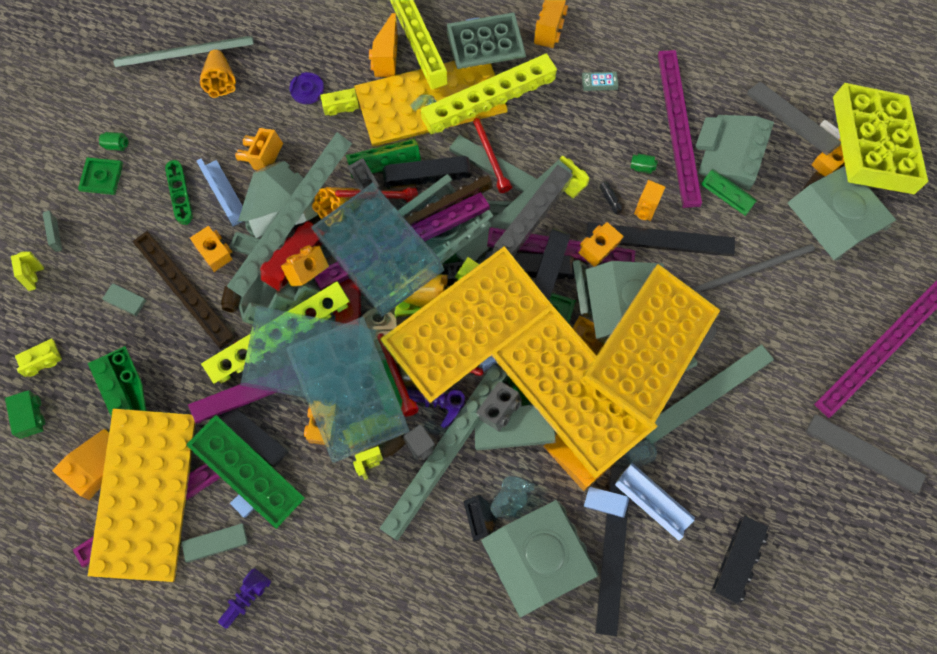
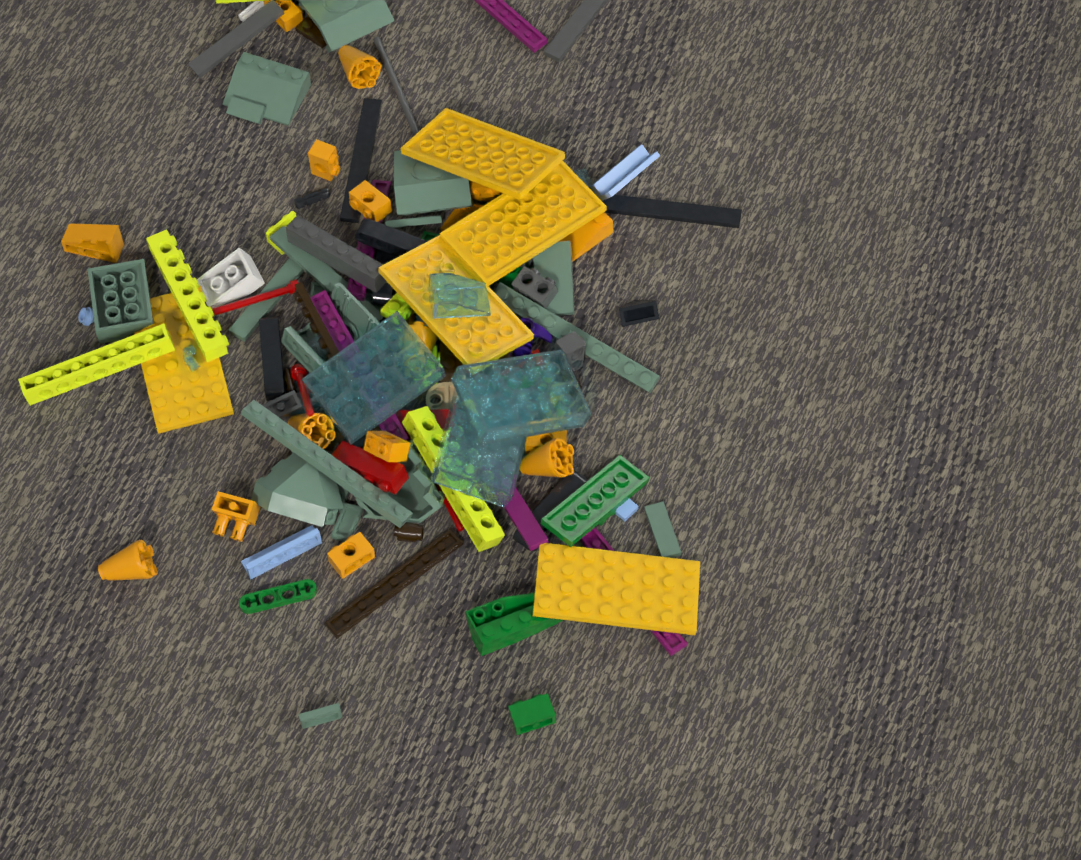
camera: 85 degrees left, 10 degrees down
(24, 269) = (371, 728): neon yellow bracket -> none
(37, 358) = (468, 713): neon yellow bracket -> none
(85, 466) = (586, 645): light orange slope -> none
(100, 176) = (250, 680): green tile -> none
(113, 141) = (208, 667): green brick -> none
(124, 299) = (404, 638): sand green tile -> none
(183, 51) = (93, 606): sand green tile -> none
(252, 584) = (703, 489): dark purple piece -> none
(289, 425) = (549, 460): none -> light orange cone
(311, 89) = (156, 484): dark purple tile -> none
(339, 102) = (175, 445): neon yellow bracket -> none
(367, 458) = (592, 396): neon yellow bracket -> none
(384, 49) = (119, 392): light orange slope -> none
(385, 155) = (253, 390): green fence -> none
(467, 322) = (457, 296): none -> clear light blue slope
(511, 496) = (618, 284): clear light blue hair -> none
(513, 132) = (230, 279): none -> white slope
(539, 557) = (676, 259): sand green panel -> none
(599, 81) = (172, 203): tile -> none
(606, 502) = (625, 210): light blue tile -> none
(643, 163) = (276, 167): green brick -> none
(679, 129) = (235, 135): magenta plate -> none
(709, 392) = (505, 110): sand green tile -> none
(729, 192) = (314, 98): green tile -> none
(739, 561) = (675, 116): black brick -> none
(769, 228) = (359, 67): none -> light orange cone

